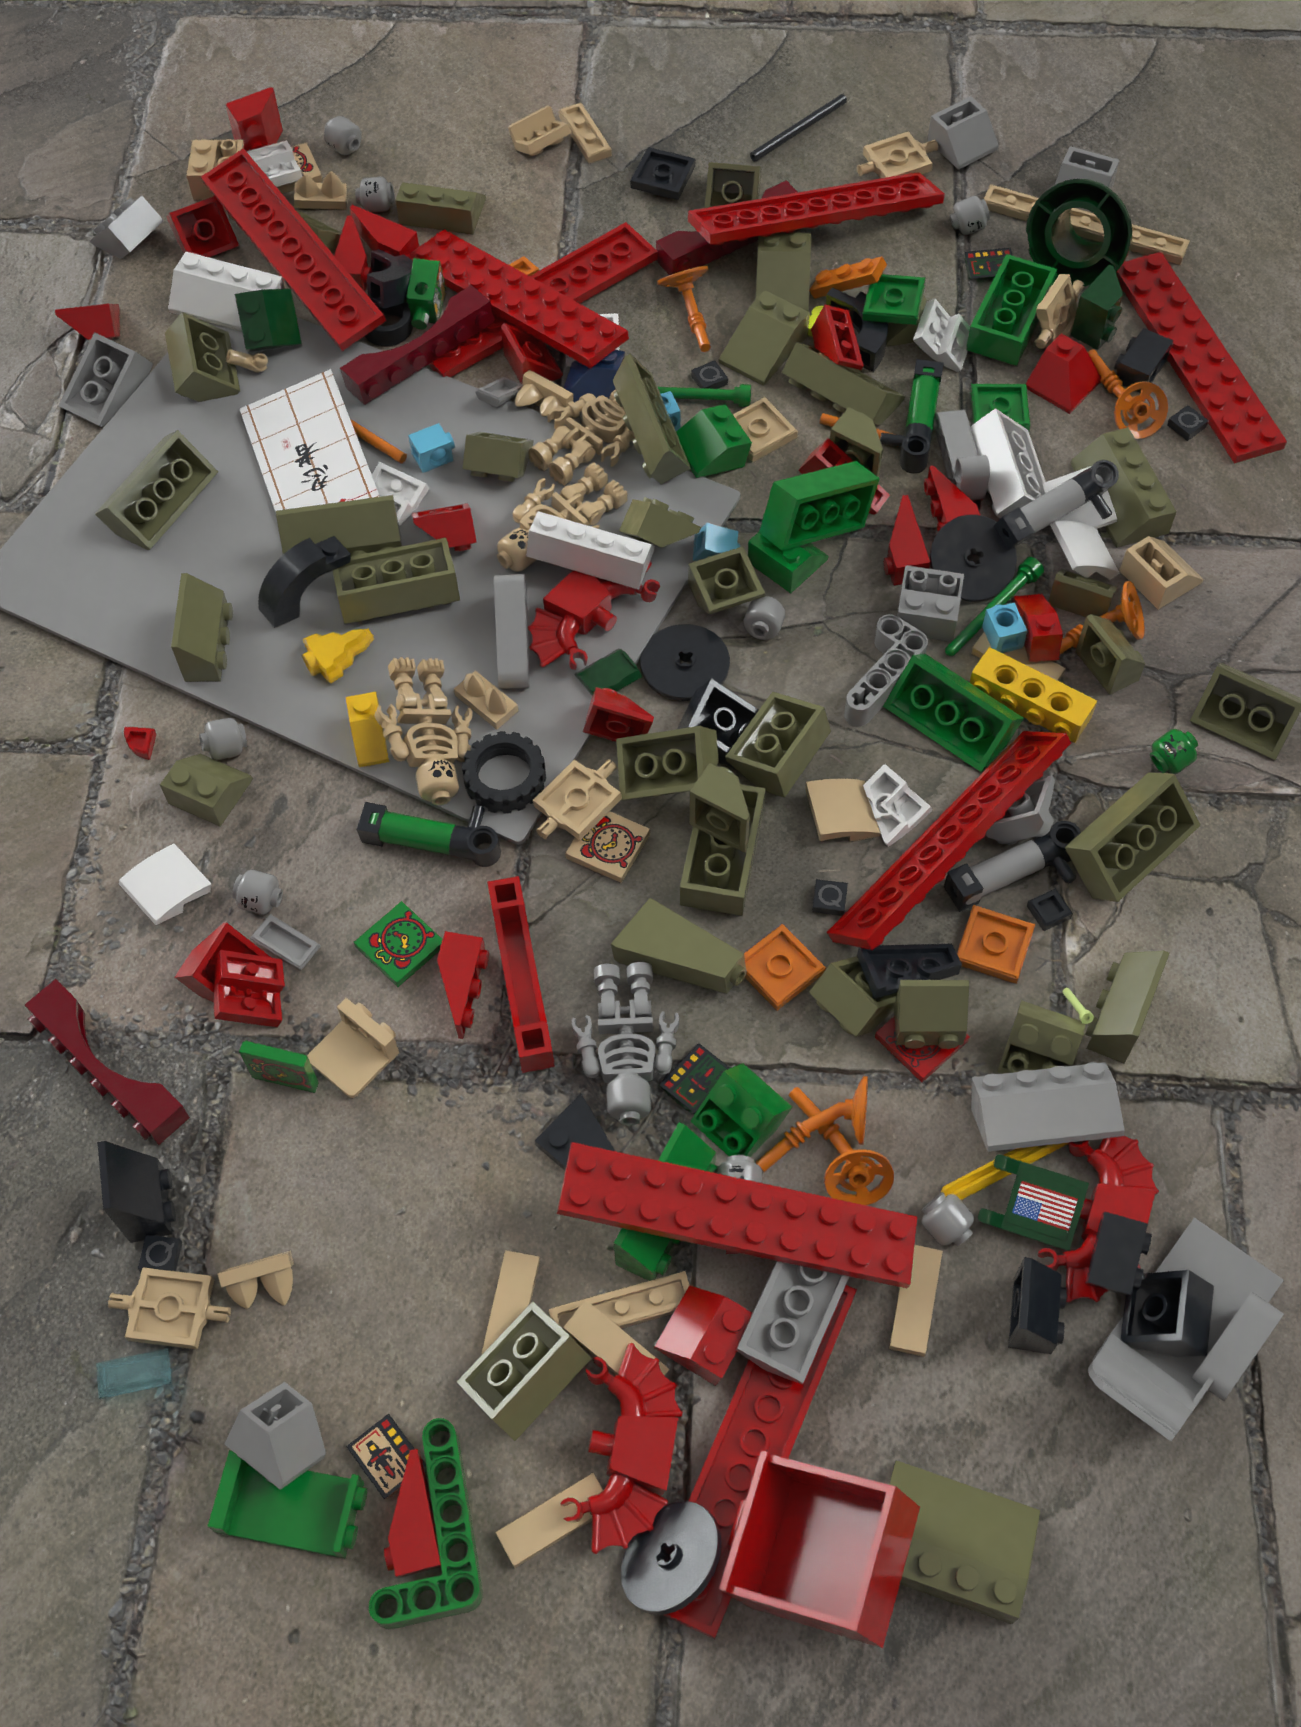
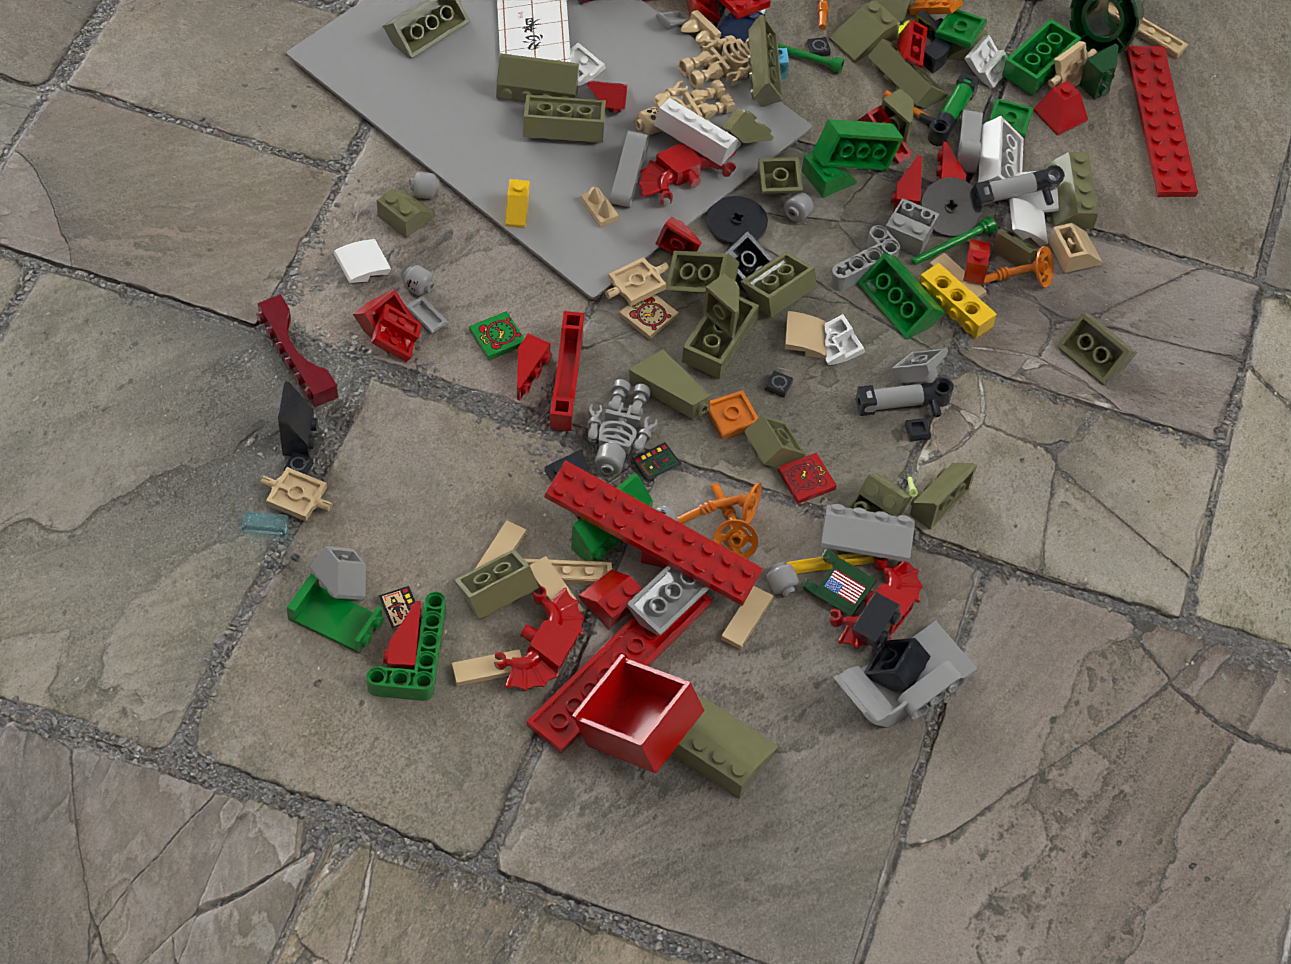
camera: 10 degrees right, 5 degrees down
(140, 741) = (371, 173): red tile -> none
(201, 630) = (430, 115): olive slope -> none
(274, 1274) = (363, 490): tan tile -> none
(279, 1066) = (402, 380): green tile -> none
(293, 573) = (498, 96): black arch -> none
(334, 652) = (510, 152): yellow rock -> none
(354, 1049) = (451, 386): tan bracket -> none
(379, 443) = (582, 31): orange bar -> none
(381, 826) = (507, 263): piece -> none
(431, 447) = (615, 42): medium azure brick -> none
(435, 743) = (554, 220): tan piece -> none
(496, 455) = (656, 58): olive slope -> none
(500, 745) = (598, 236): black tyre -> none
(610, 672) = (687, 212): dark green piece -> none
(666, 1582) = (551, 701): piece -> none
(713, 541) = (782, 149): medium azure brick -> none
(714, 442) = (804, 88): green slope -> none
(740, 1112) = (677, 485): green slope -> none
(765, 428) = (839, 89): tan tile -> none
(891, 963) = (811, 433): black wing -> none
(931, 1013) = (815, 460): olive slope -> none
(948, 839) = (865, 369): red plate -> none
(985, 262) = (1036, 20): piece -> none
(995, 944) = (874, 439): orange tile -> none
(1004, 628) = (953, 254): medium azure brick -> none
(1036, 1308) = (817, 638): black slope -> none
(1109, 654) = (1018, 289): olive slope -> none
(1133, 836) = (985, 398): olive brick -> none
(1134, 405) = (1101, 140): orange dish -> none
(1143, 358) = (1120, 114): black brick -> none
(1174, 751) = (1036, 359): green head -> none
(1187, 422) = (1135, 162): black tile -> none

